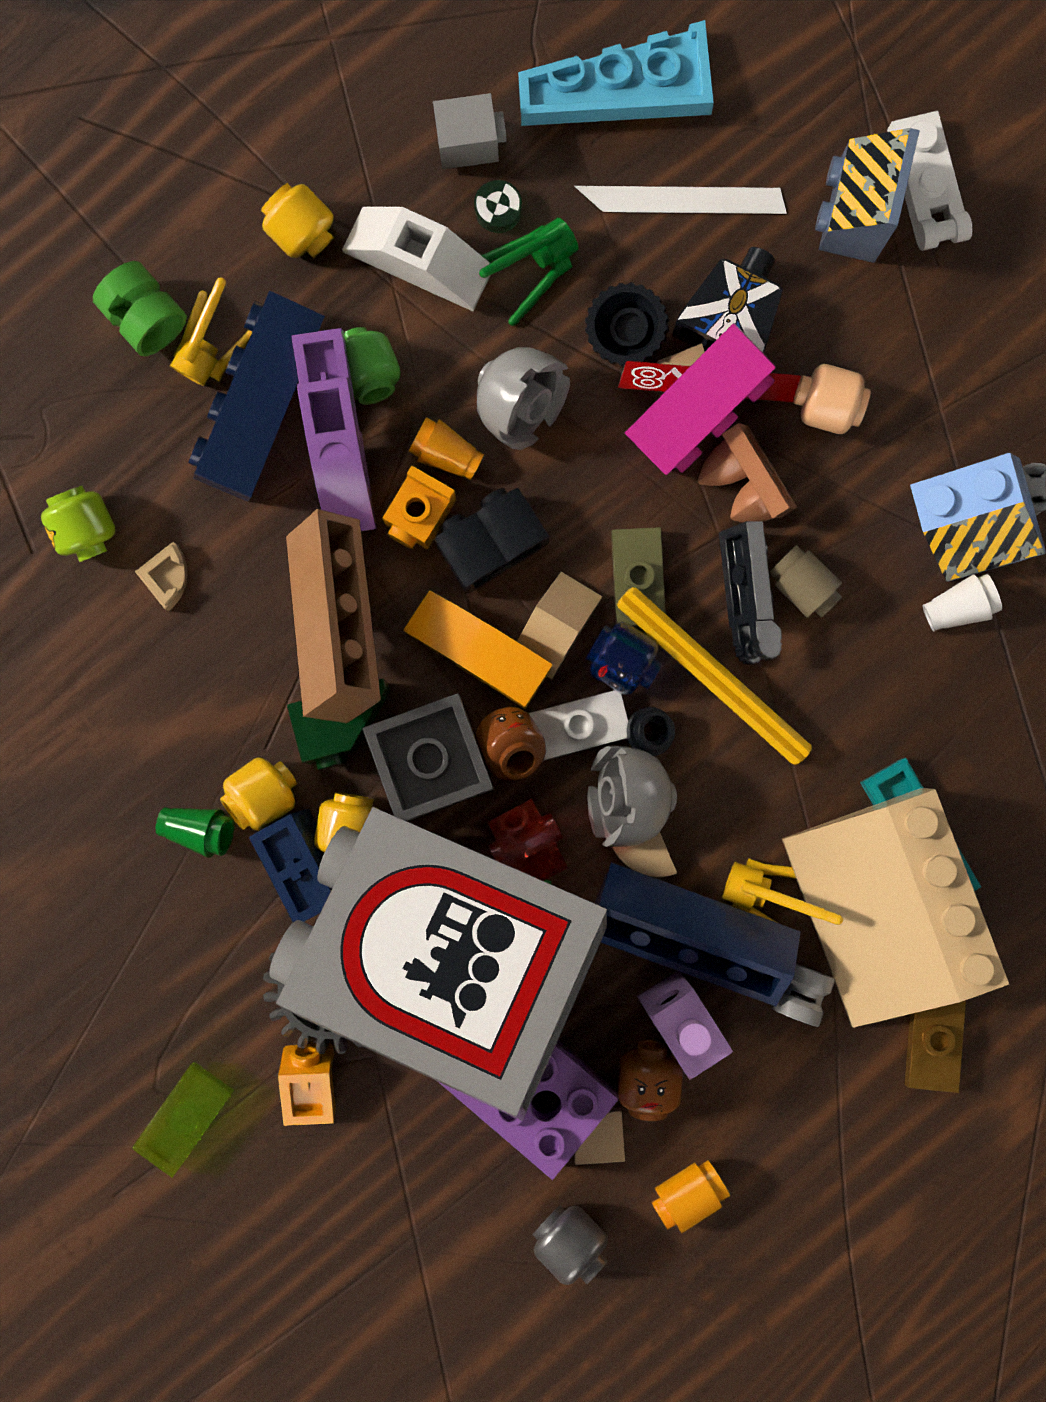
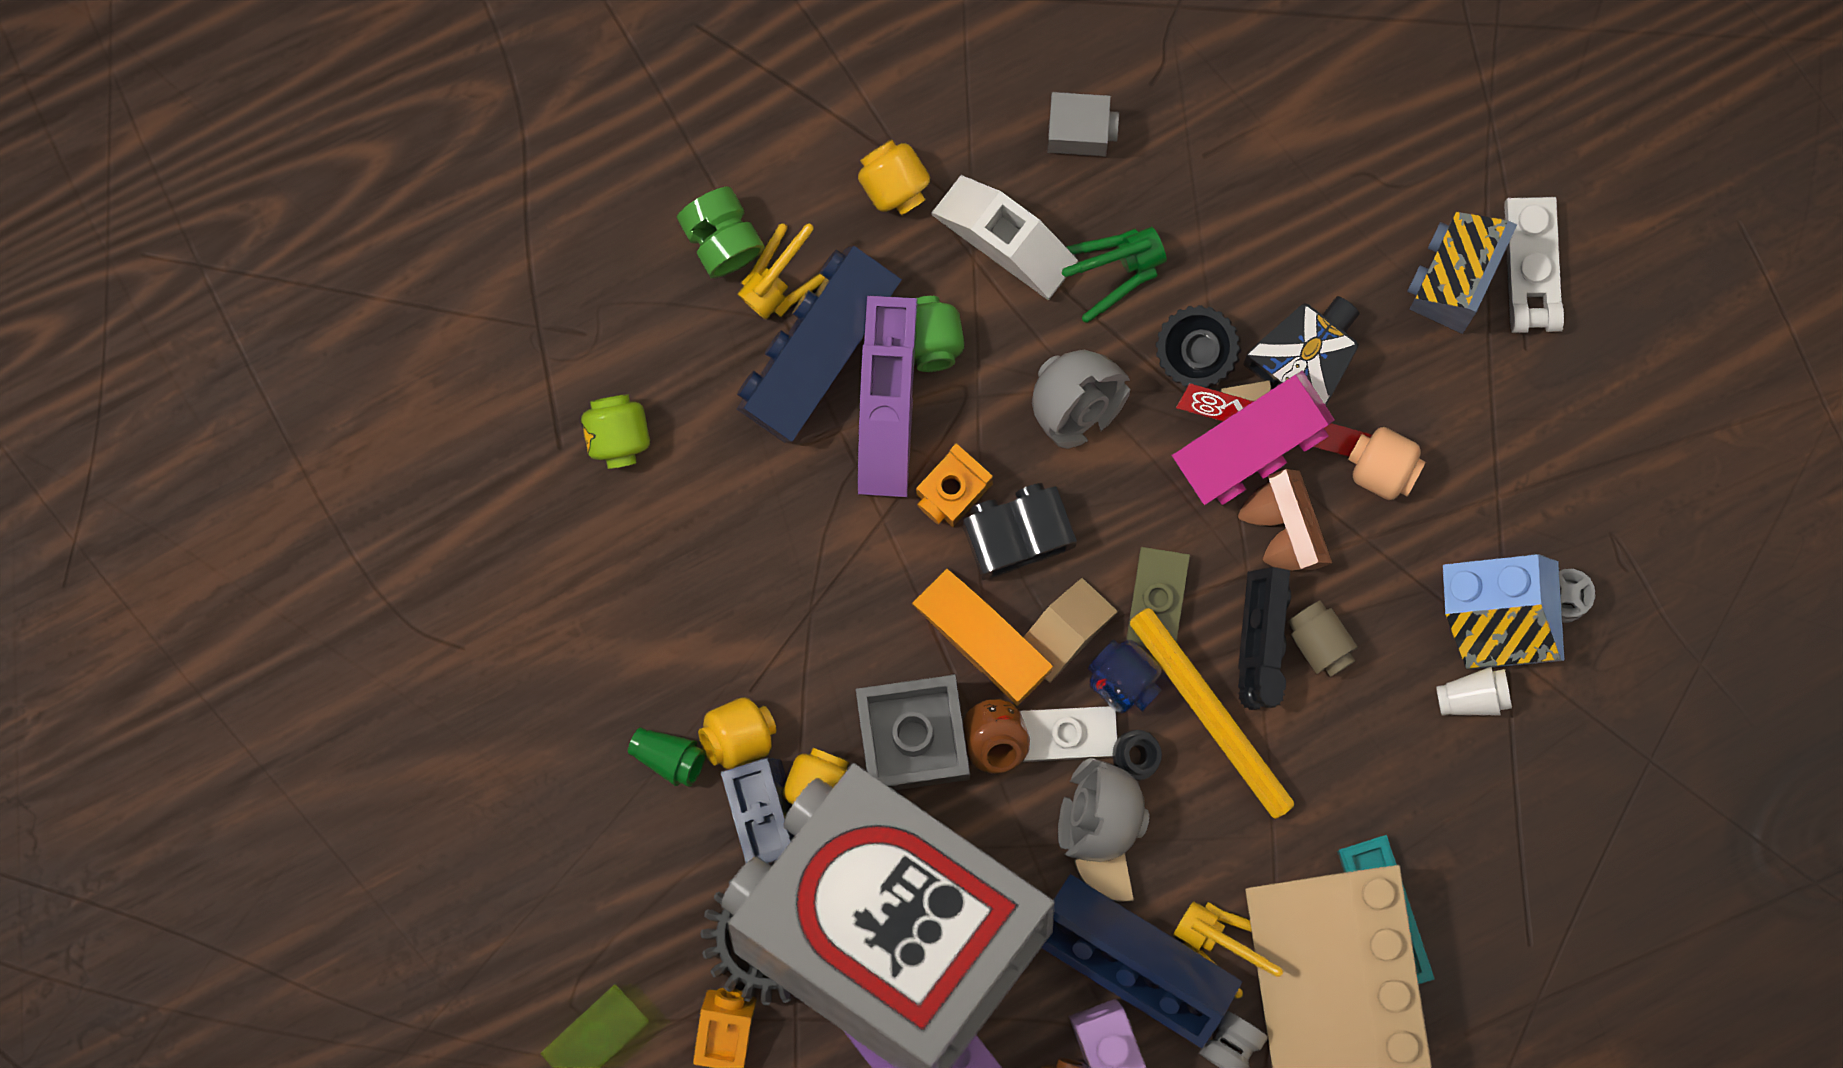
camera: 15 degrees right, 5 degrees down
(165, 575) = (688, 499): tan tile -> none
(329, 741) = (827, 679): dark green slope -> none
(332, 617) = (848, 575): medium nougat brick -> none
(445, 449) = (992, 433): light orange cone -> none
(498, 206) = (1095, 201): clear green tile -> none
(524, 834) = (994, 831): clear red brick -> none
(639, 82) = (1260, 106): medium azure wing -> none
(685, 199) = (1286, 231): white sticker -> none

